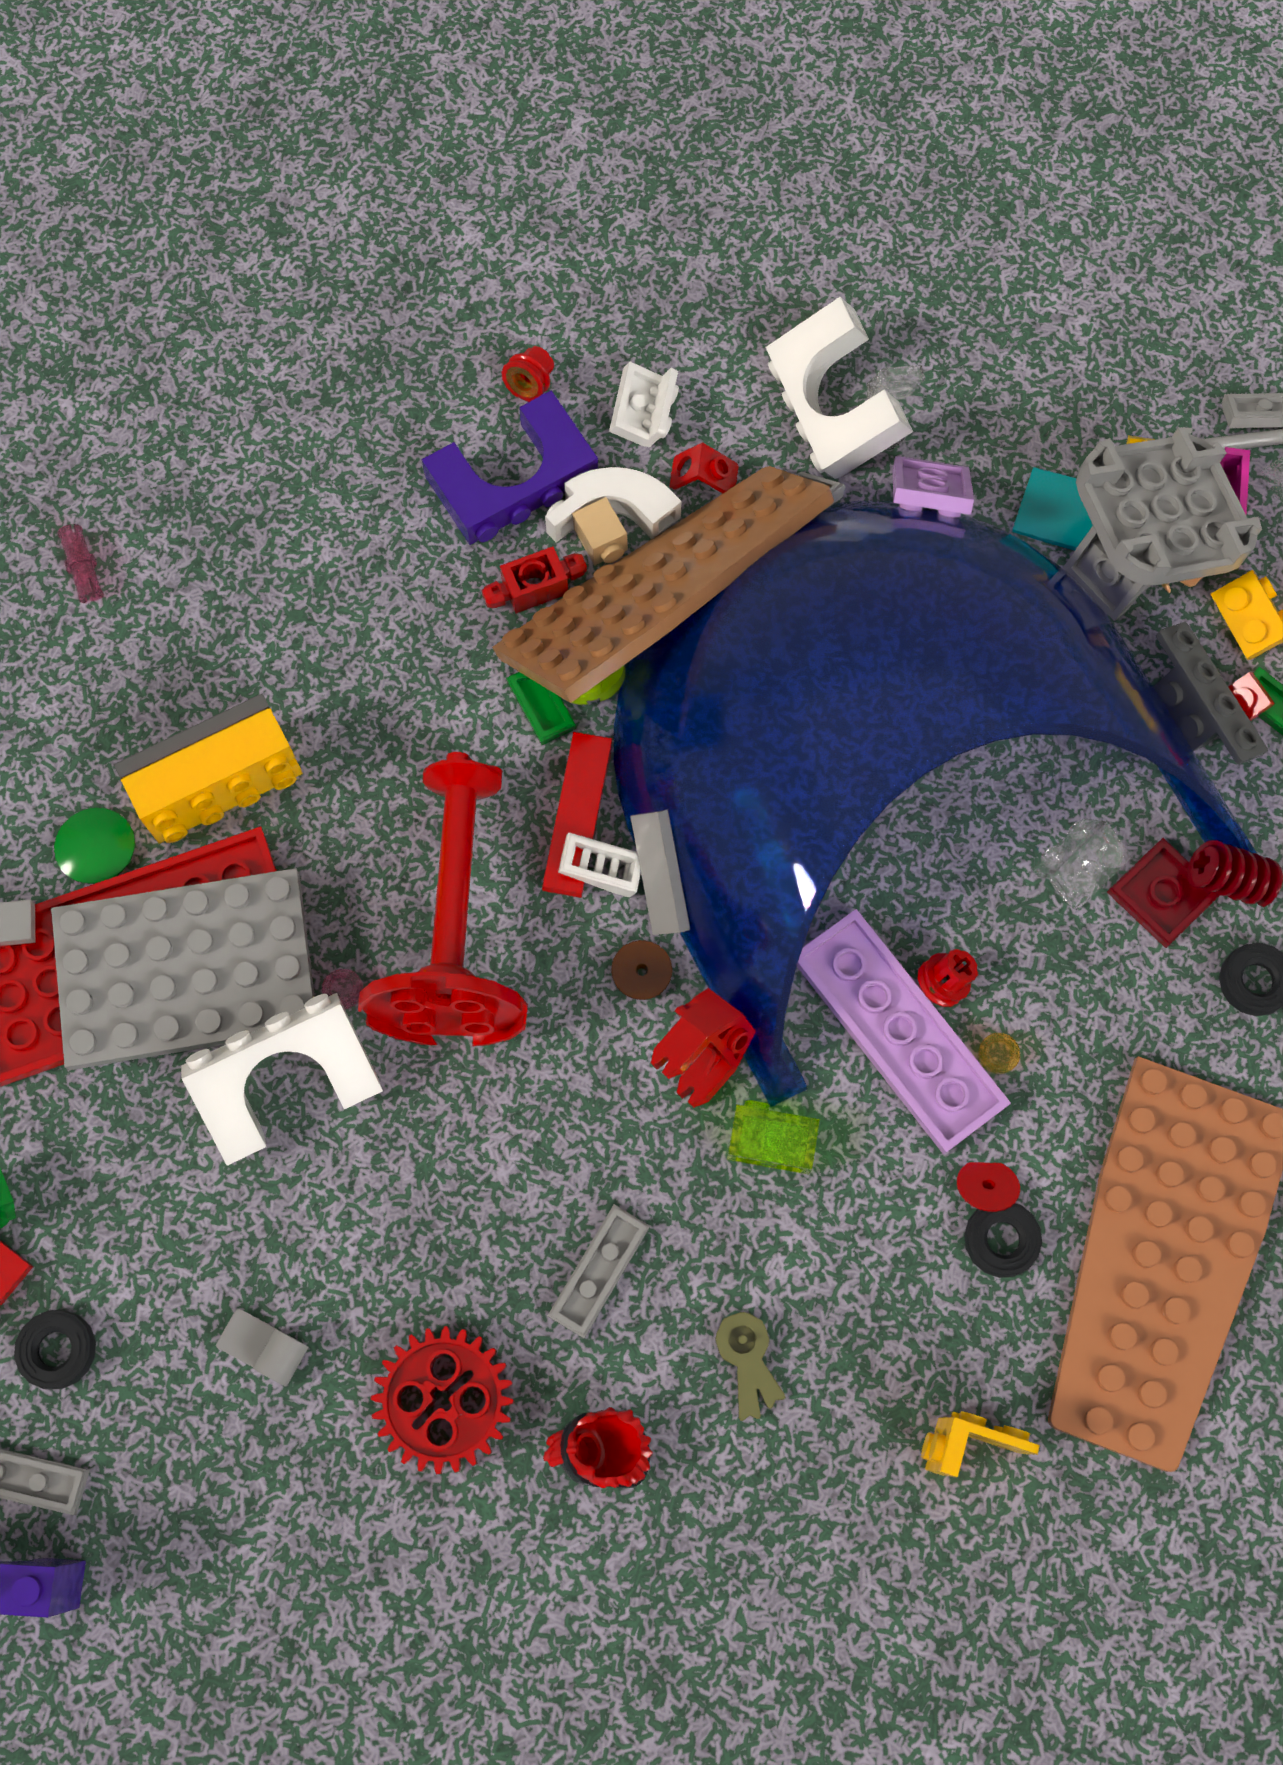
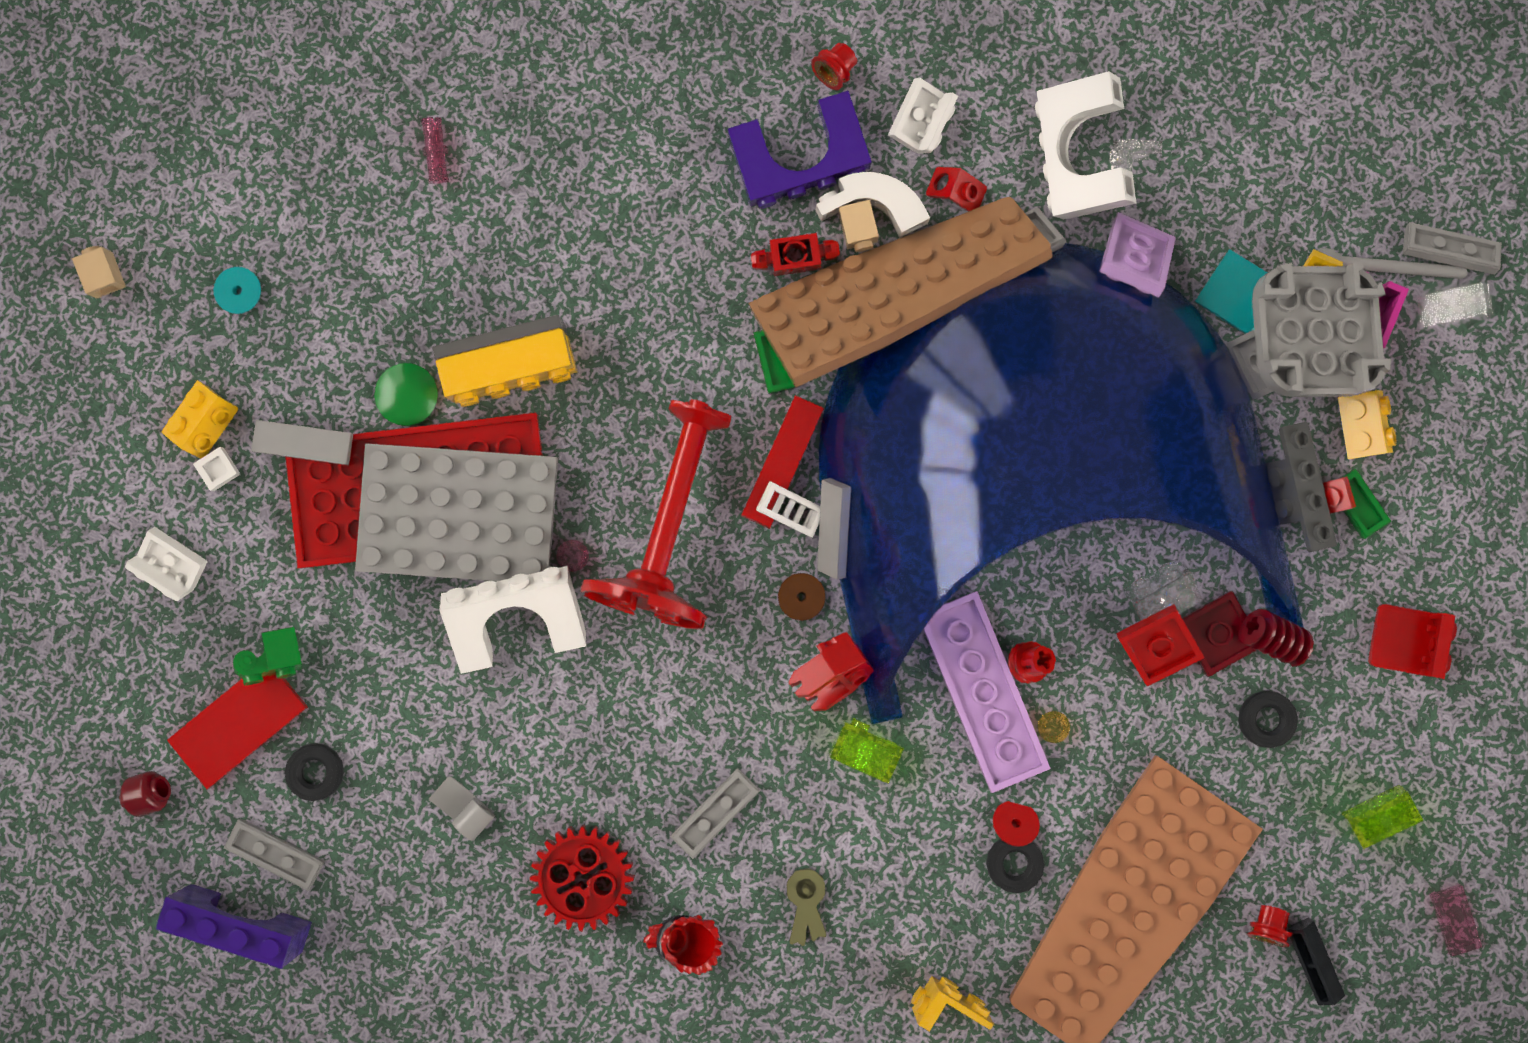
camera: 15 degrees right, 15 degrees up
(1098, 917) = (1160, 645): none -> red plate

